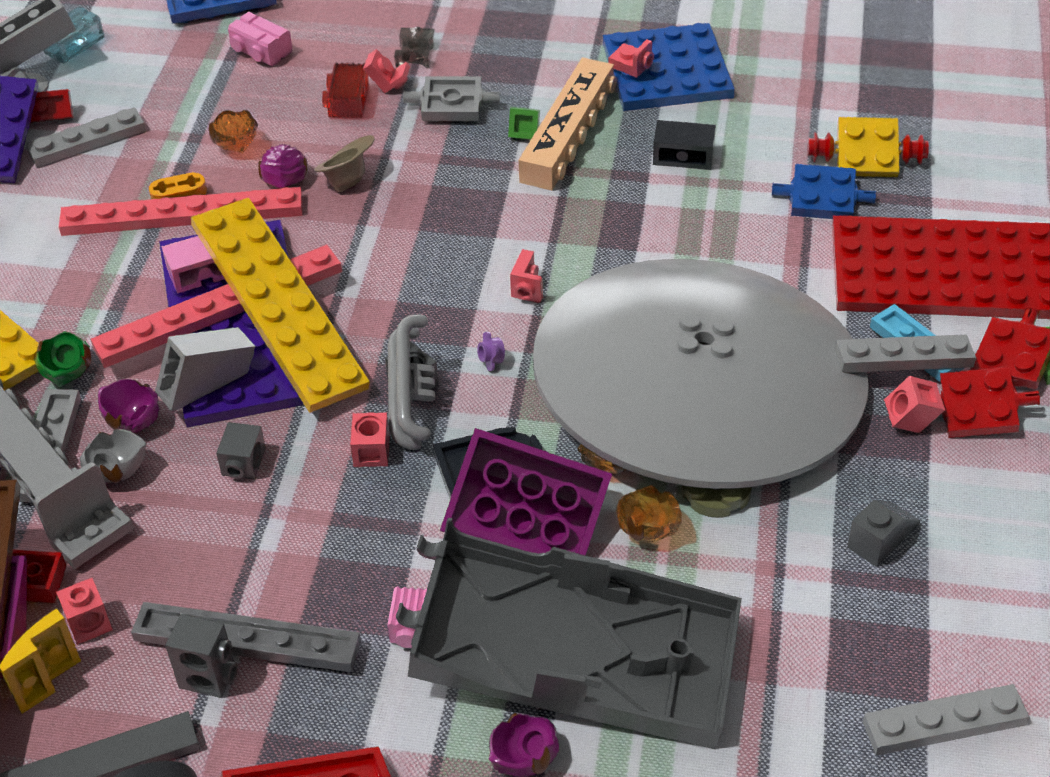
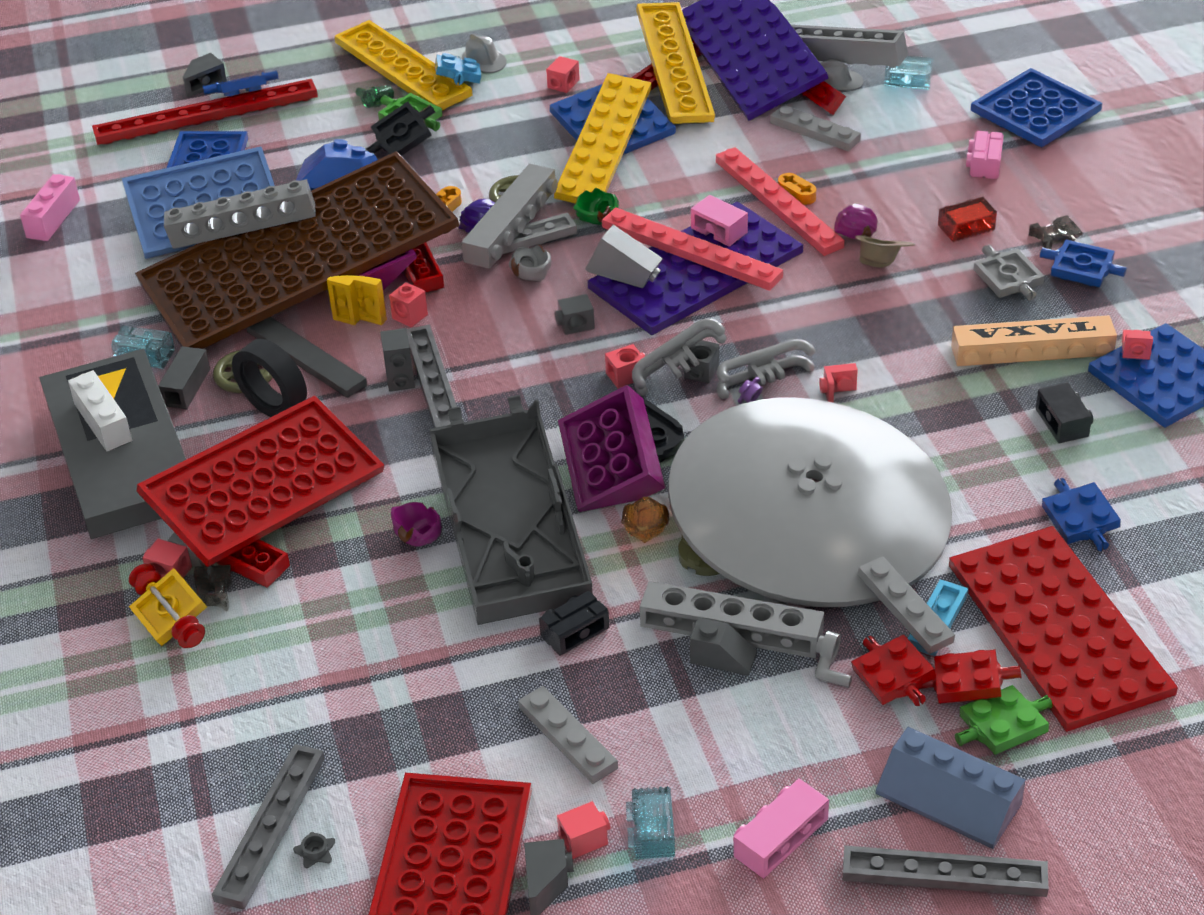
camera: 65 degrees right, 5 degrees down
(81, 516) = (473, 267): light grey bracket -> none
(128, 405) = (575, 250): magenta hair -> none
(233, 130) = (871, 184): clear orange hair -> none
(280, 305) = (703, 267): yellow plate -> none
(383, 73) = (1003, 226): coral bracket -> none
(464, 325) = (763, 365): none -> light grey piece
(477, 48) = (1082, 263): none -> blue plate
(523, 122) = (1010, 313): bright green tile -> none
(778, 645) = (573, 622): none -> black brick
(827, 514) = (759, 622): none -> light grey brick
(868, 146) = (1158, 520): yellow plate -> none
(914, 404) = (854, 625): coral brick -> none
(927, 440) = (828, 649): none -> light grey plate

